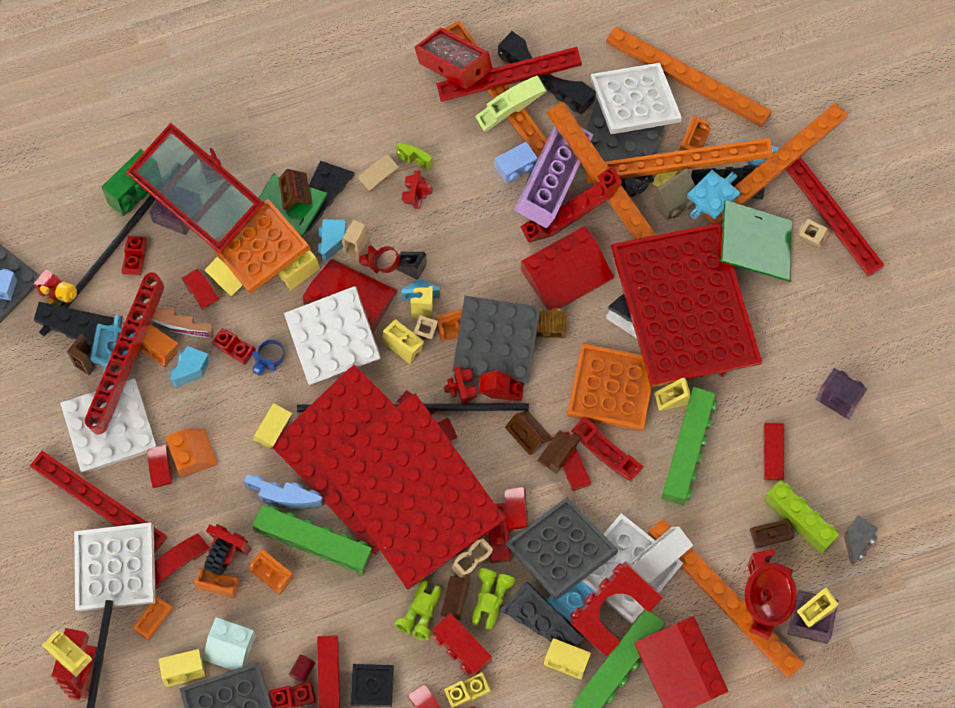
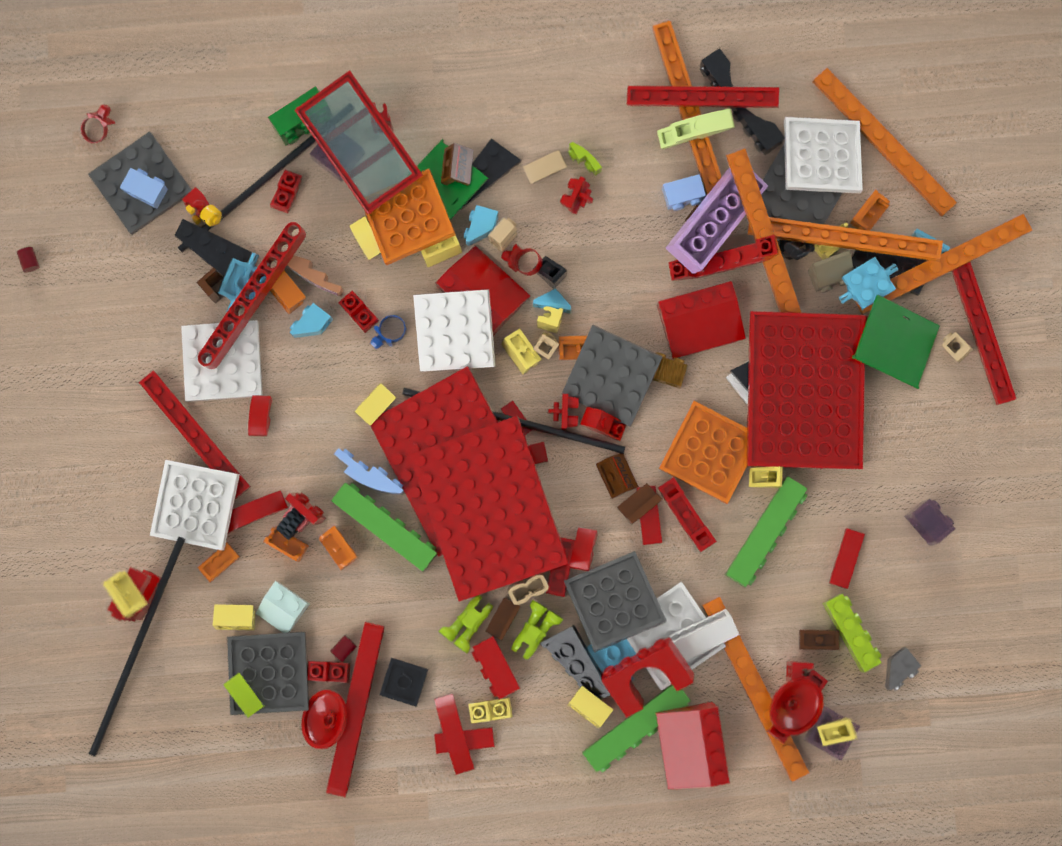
camera: 20 degrees right, 15 degrees up
(191, 451) = (292, 408): orange slope -> none
(200, 288) = (340, 244): red slope -> none
(453, 58) = (651, 65): red brick -> none

